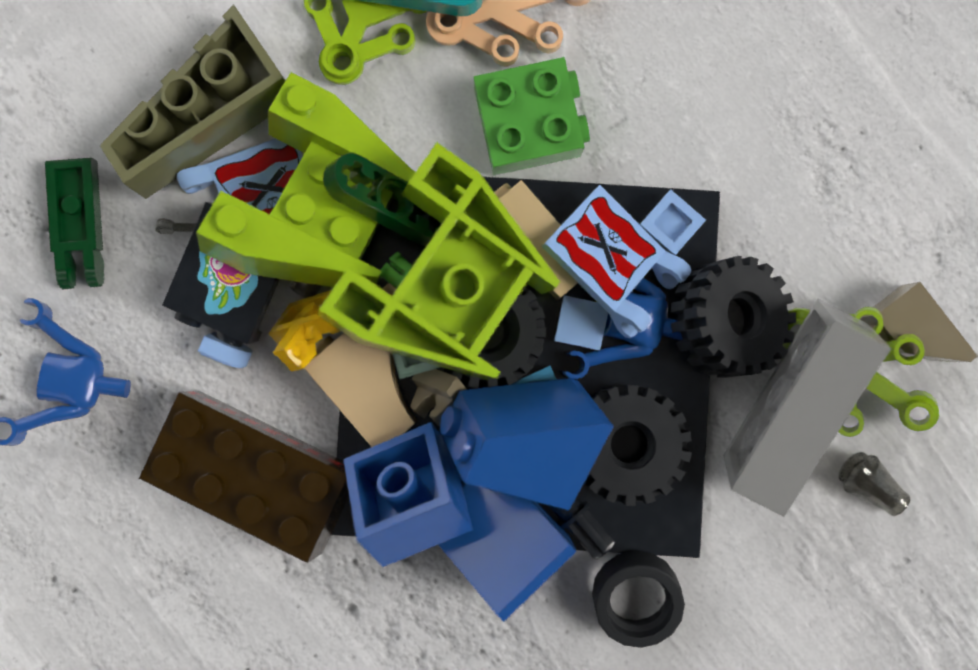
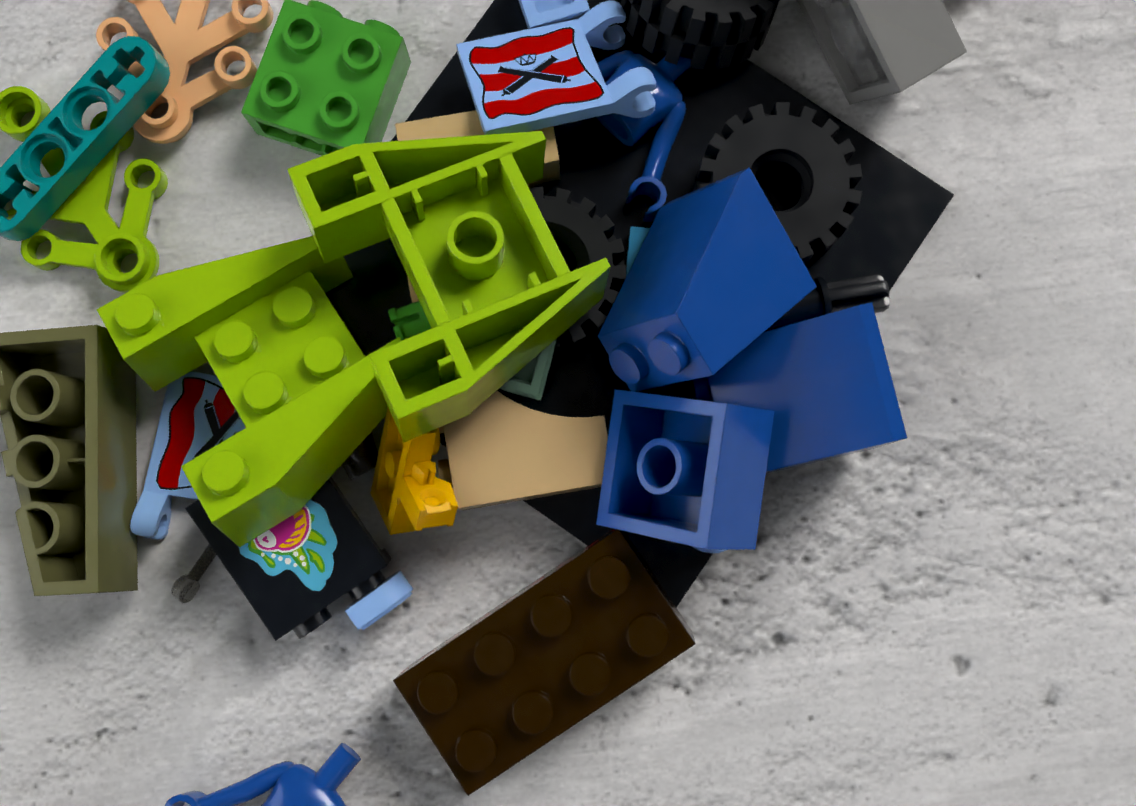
camera: 55 degrees left, 5 degrees down
(75, 219) = (104, 691): dark green hinge -> none
(368, 199) = (282, 303): dark green beam -> none
(435, 390) = (580, 368): dark tan tile -> none
(581, 323) = (602, 164): light blue tile -> none
(644, 631) = (1006, 285): black tyre -> none

